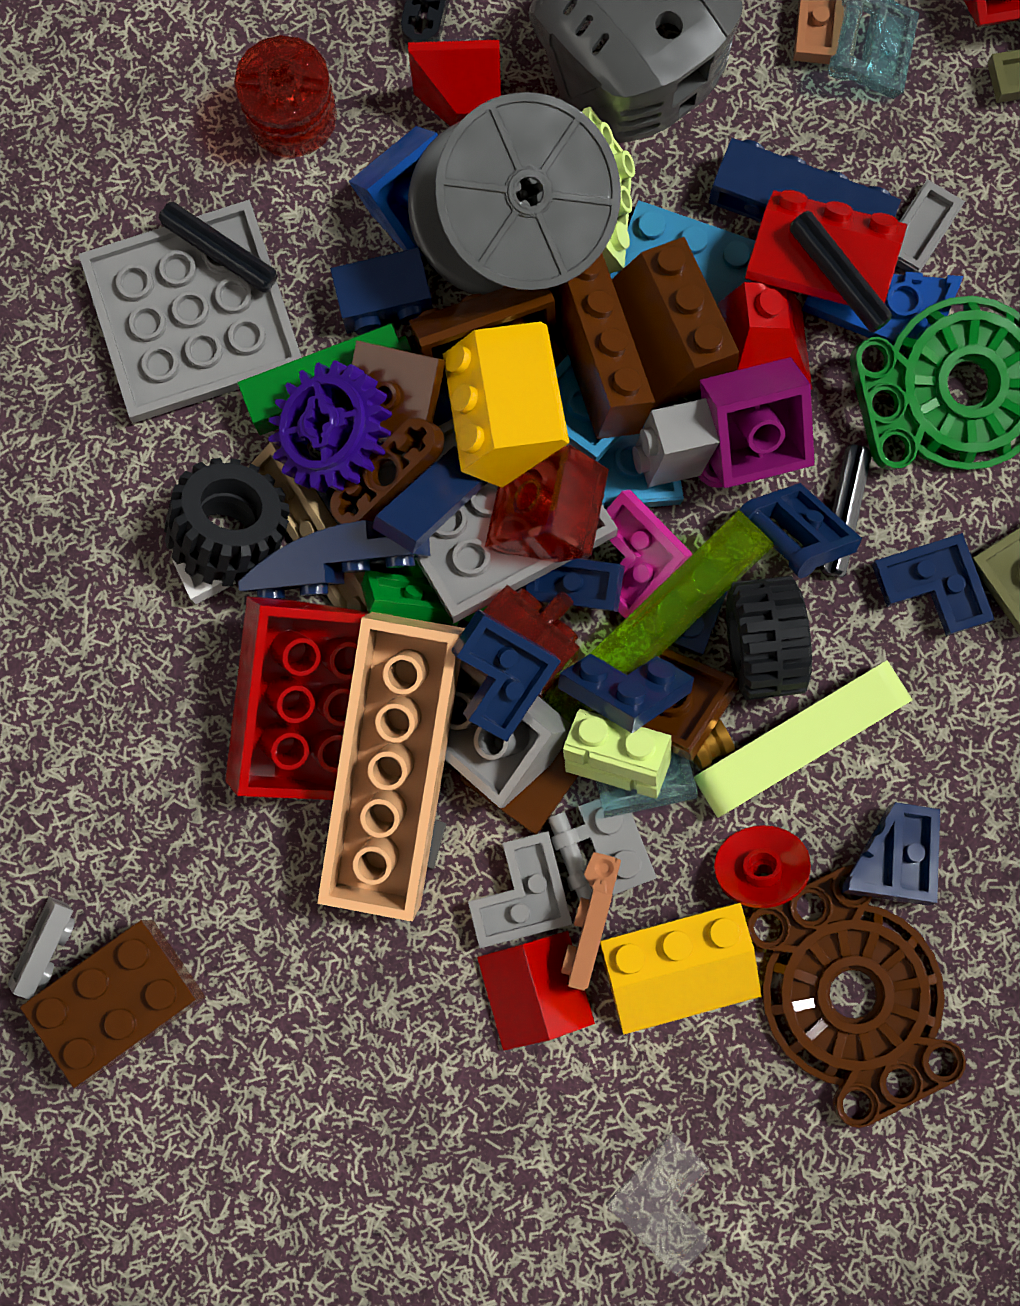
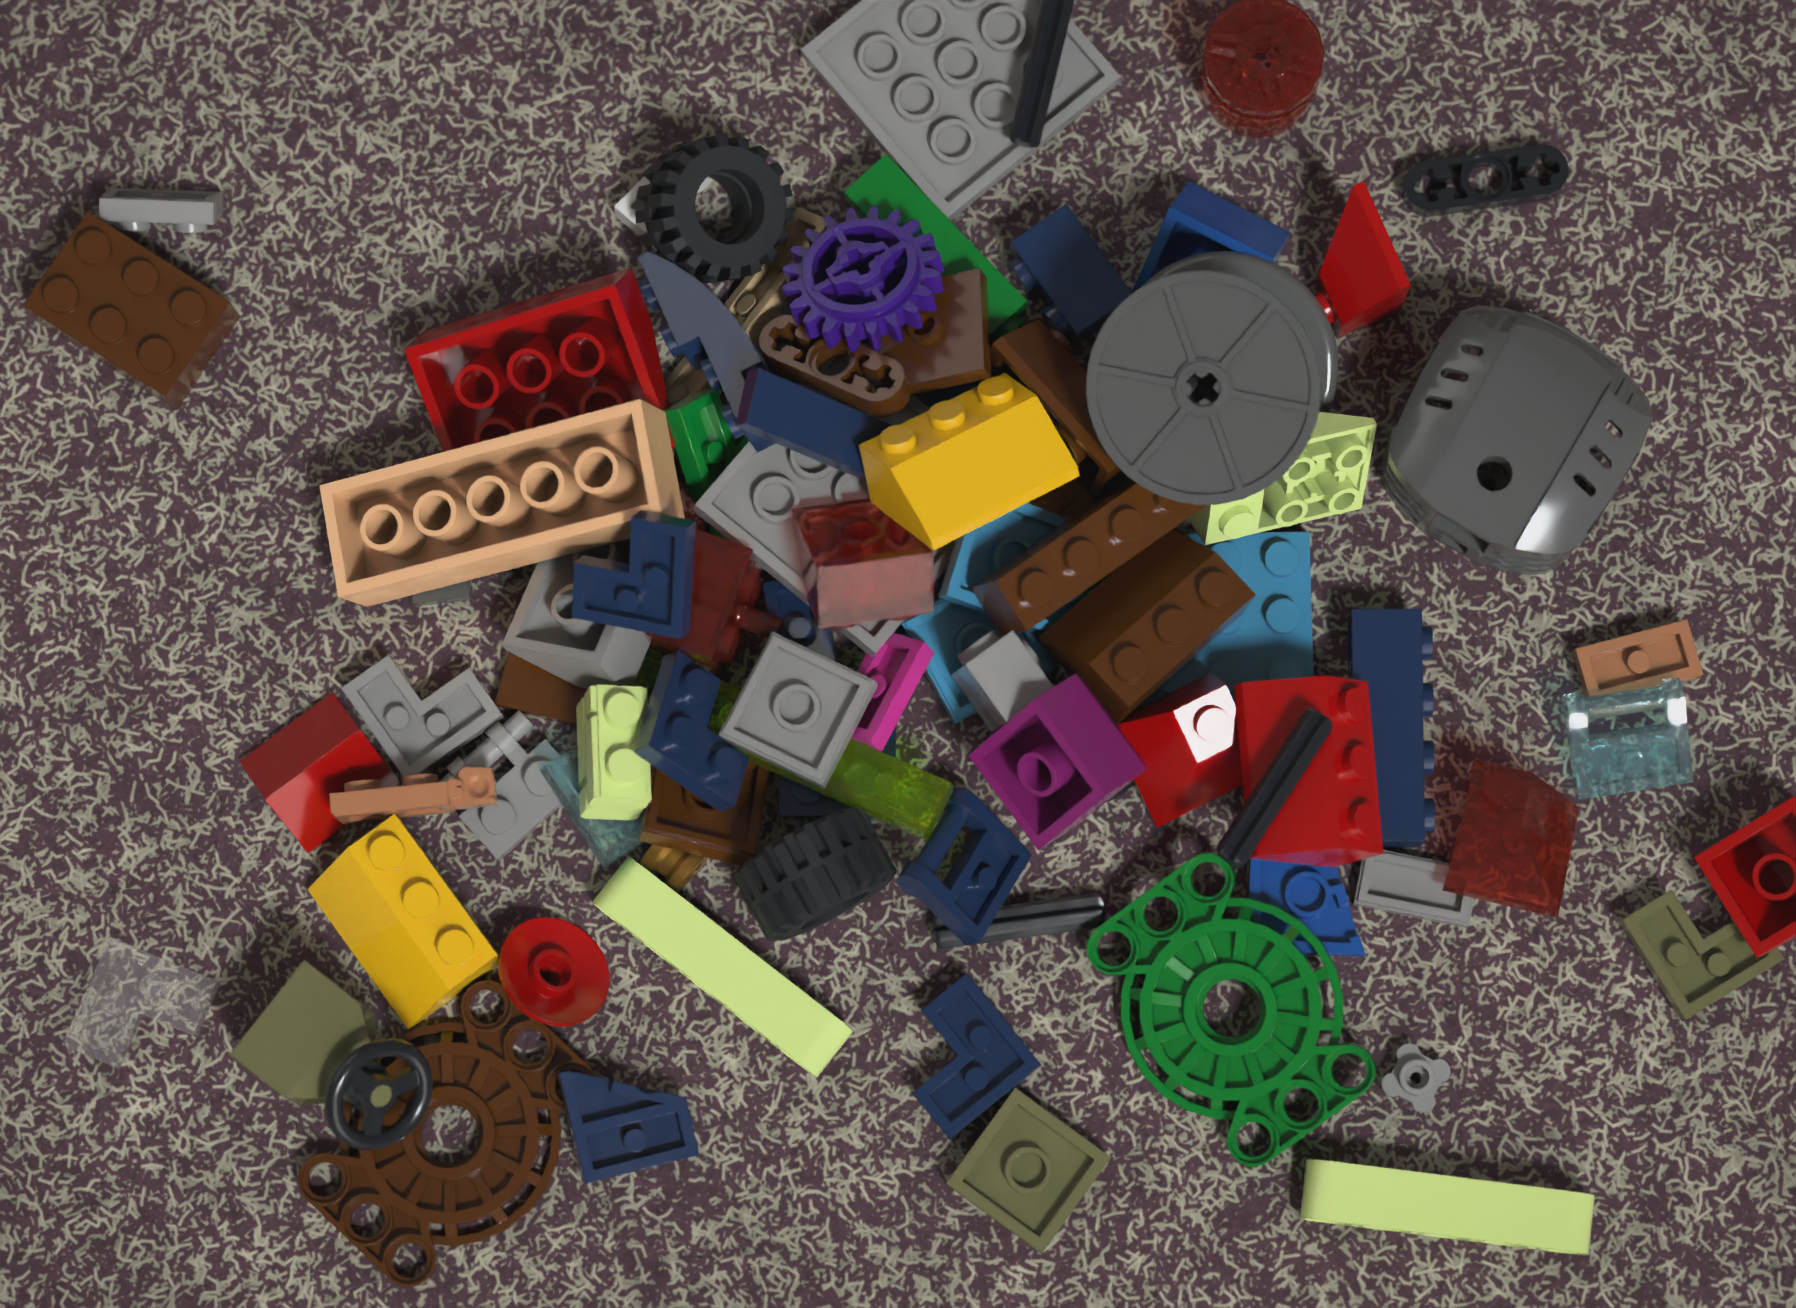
camera: 70 degrees right, 0 degrees up
(639, 601) = (798, 710): none -> light grey plate
(766, 1068) = (325, 1049): none -> olive piece
(915, 150) = (1511, 840): none -> clear red slope

